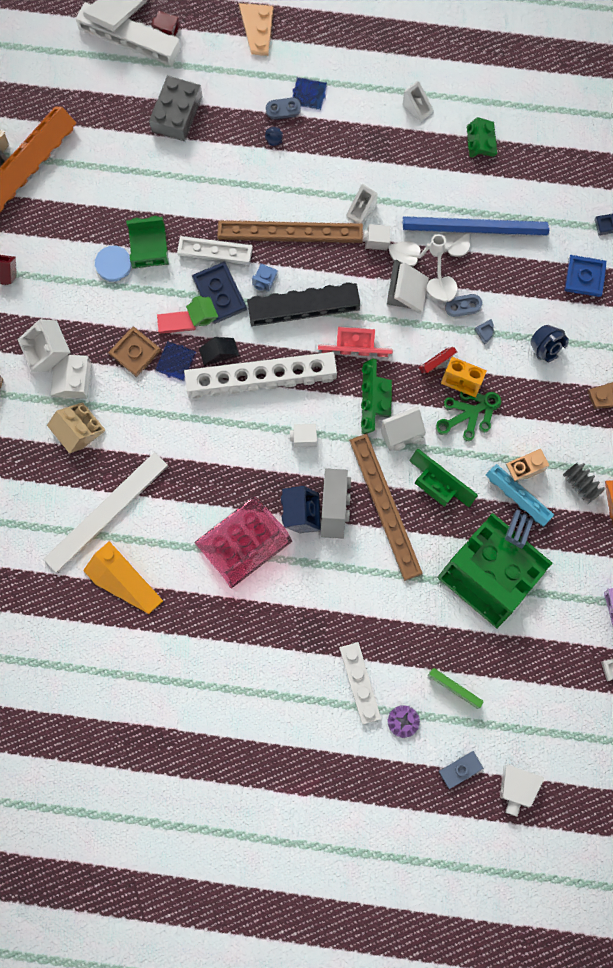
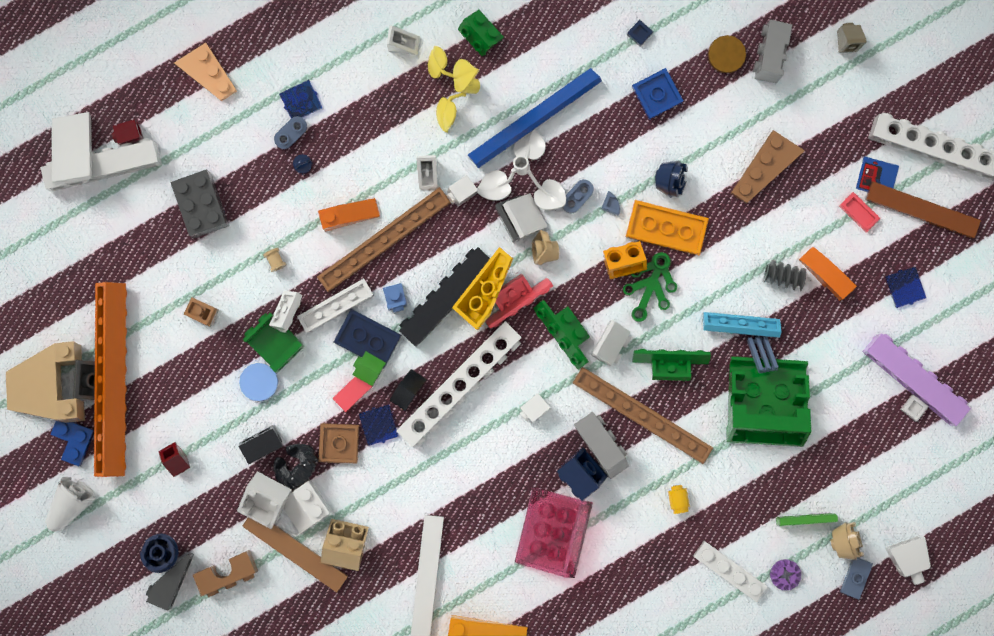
camera: 40 degrees left, 10 degrees up
(36, 408) = (297, 553): none -> medium nougat tile
(76, 306) = (260, 444): none -> black hinge
(88, 346) = (301, 472): none -> black piece
(114, 183) = (201, 312): none -> medium nougat slope
(175, 226) = (285, 311): none -> white bracket
(197, 185) = (274, 259): none -> tan bush
(277, 192) = (348, 214): none -> orange slope
(328, 318) = (480, 296): none -> yellow wedge
(363, 592) = (678, 499): none -> yellow brick
(407, 324) = (544, 250): none -> tan piece
(437, 359) = (592, 260): red tile -> none
(440, 164) = (464, 82): none -> light yellow plant
(475, 731) = (847, 541): none -> tan cone
(516, 380) = (667, 227): none -> light orange tile
(528, 465) = (731, 297): light nougat slope -> none

